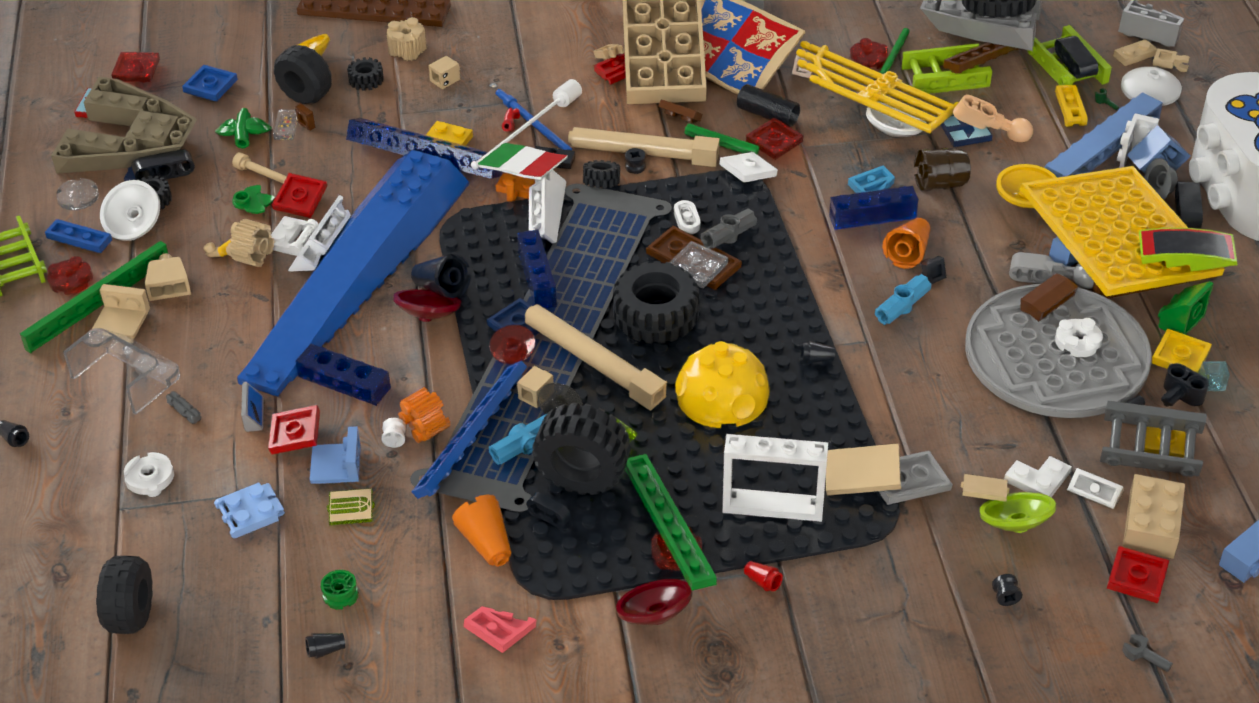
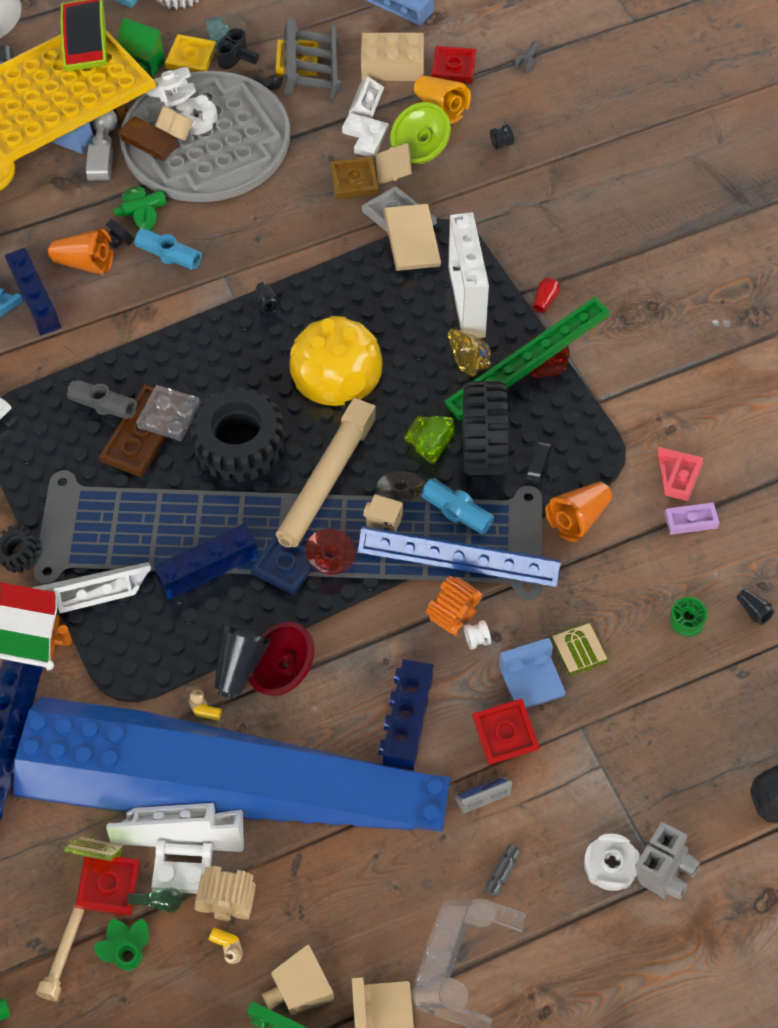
camera: 105 degrees left, 15 degrees up
(123, 499) = (664, 861): none -> light grey hips
(250, 509) = (618, 741): light blue plate -> none
(272, 216) = (166, 899): none -> clear green piece
(325, 187) = (94, 848): none -> clear neon green piece
(412, 260) = (200, 707): none -> arm
(441, 622) = (691, 518): none -> lavender plate
(654, 602) = (601, 348): dark red dish -> none
(687, 216) = (82, 446): white plate -> none
(695, 486) = (469, 351): none -> clear yellow hat
(966, 288) = (140, 206): none -> green plant
(971, 452) = (354, 178): none -> pearl gold plate
(1058, 309) = (174, 123): none -> tan axle
(1074, 543) = (448, 94): none -> light orange cone
(1112, 317) = (173, 87): none -> white hinge

